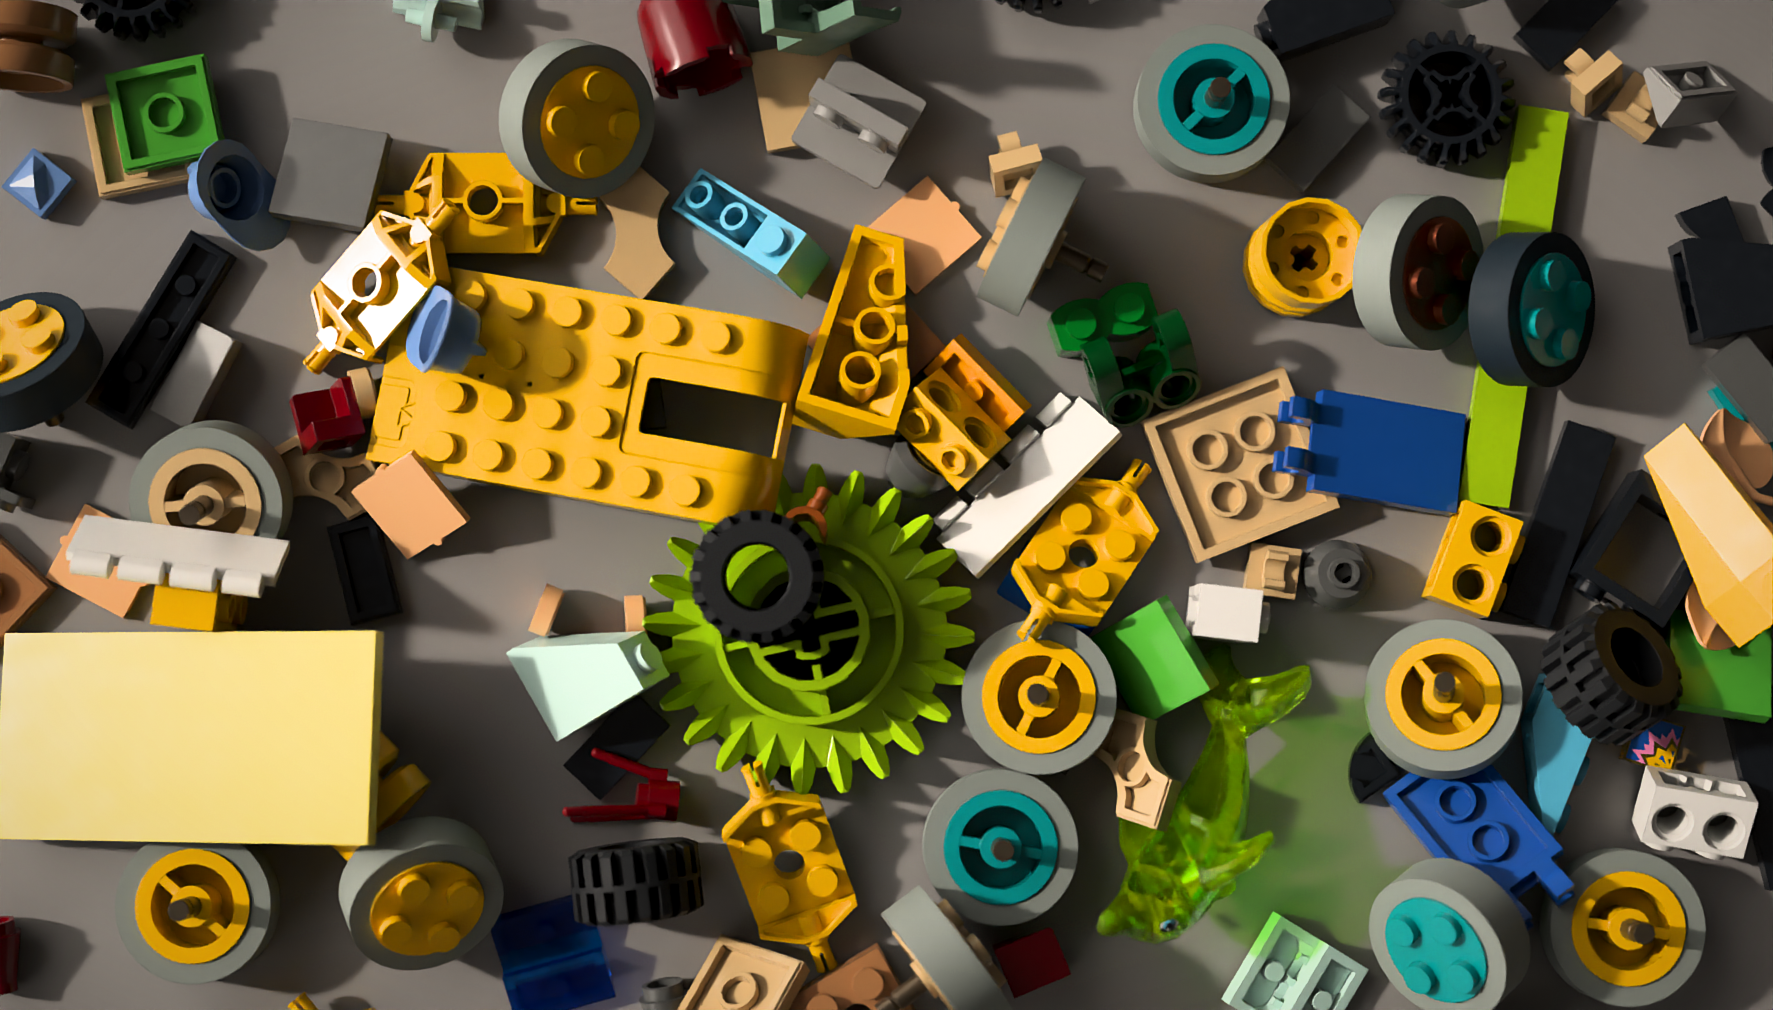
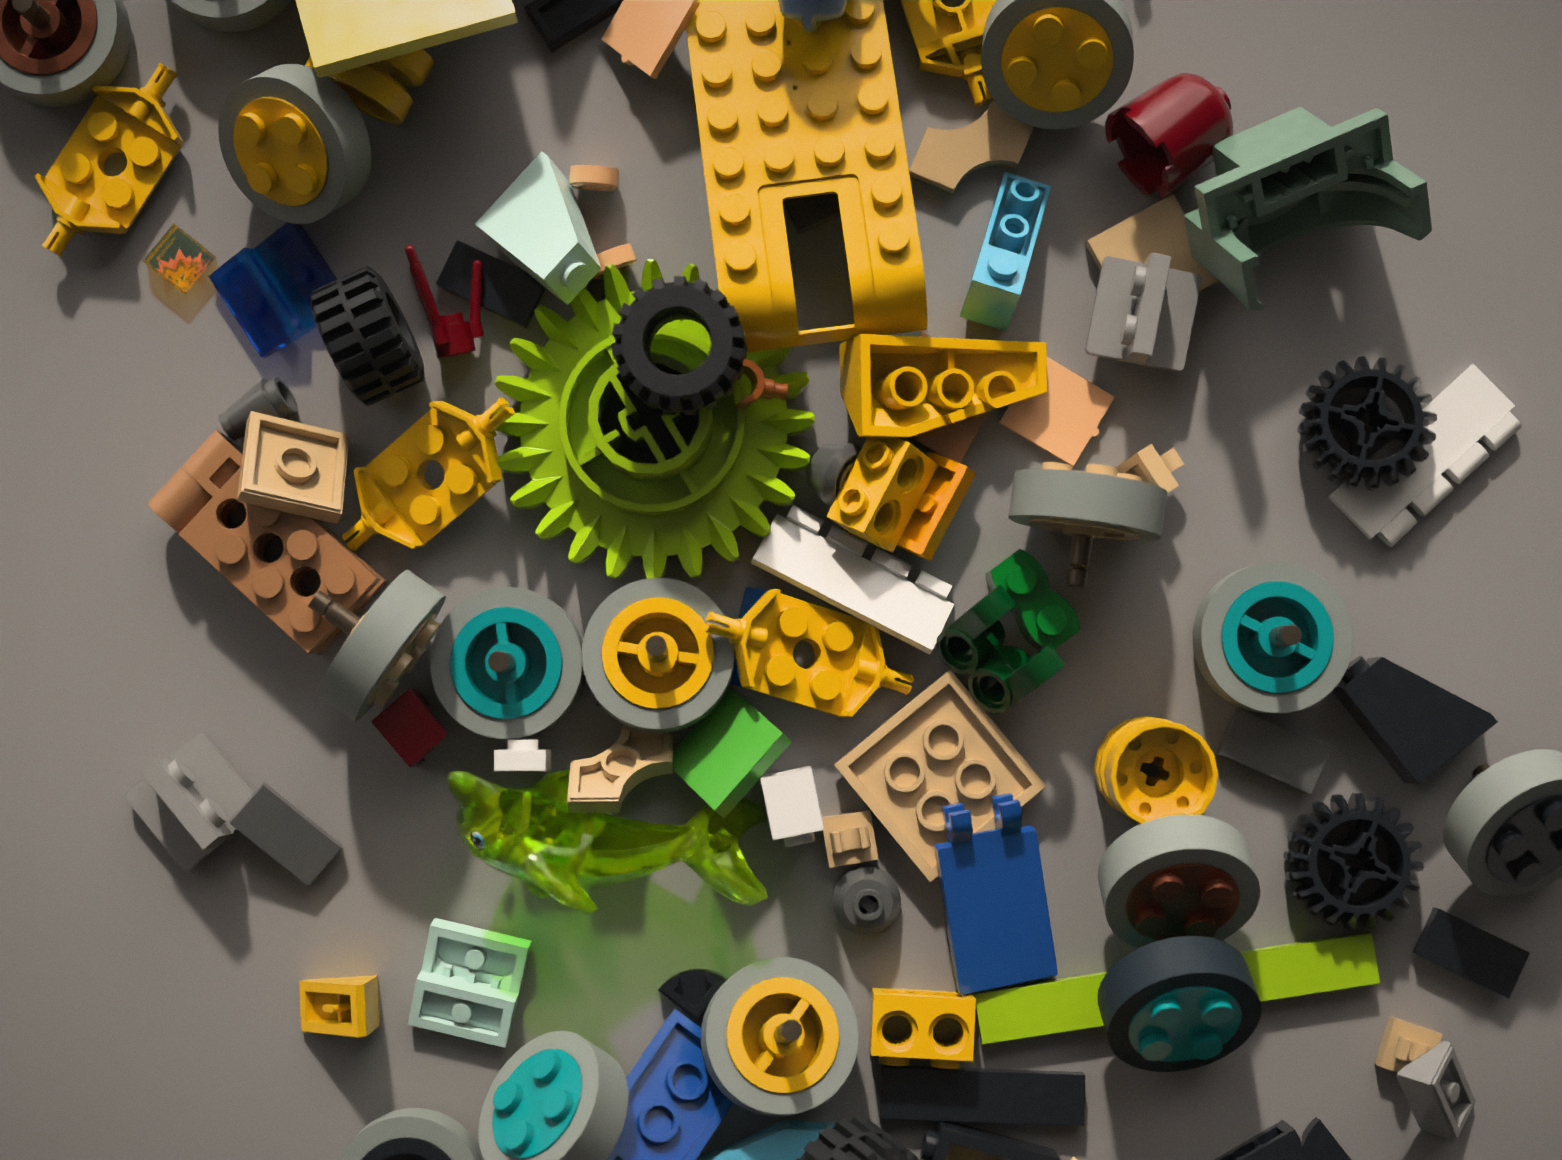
camera: 75 degrees right, 0 degrees up
(1097, 860) = (522, 756): none -> white plate
(1592, 80) = (1419, 997): tan tile -> none

